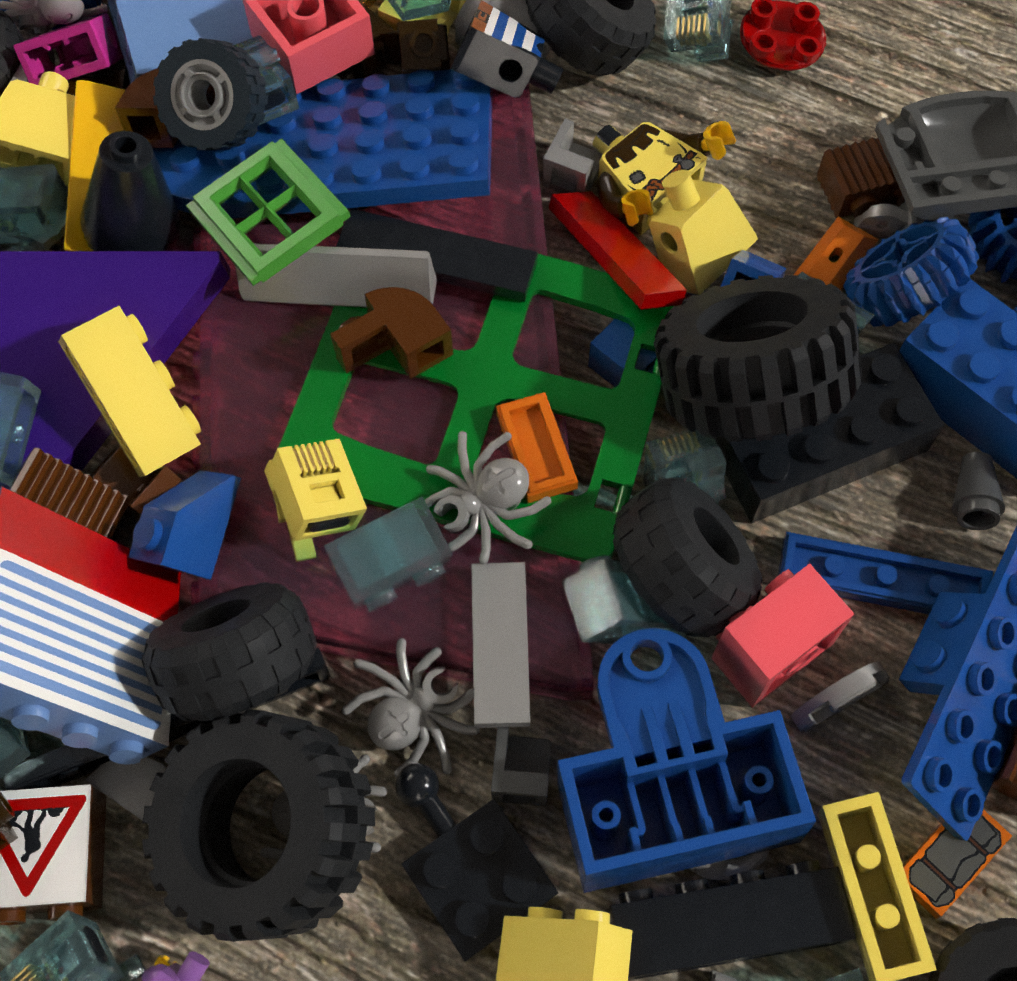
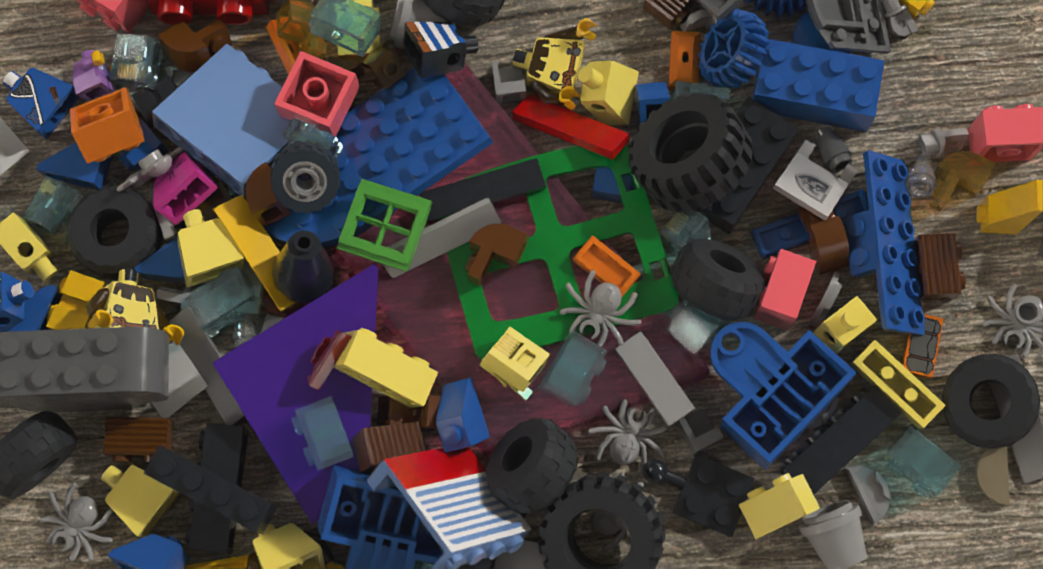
camera: 30 degrees left, 10 degrees up
(52, 329) = (326, 357): none -> dark red tile
(846, 747) = (846, 325): none -> light yellow torso
(893, 601) = (827, 241): none -> reddish brown brick
(917, 515) = (811, 184): none -> light grey flag

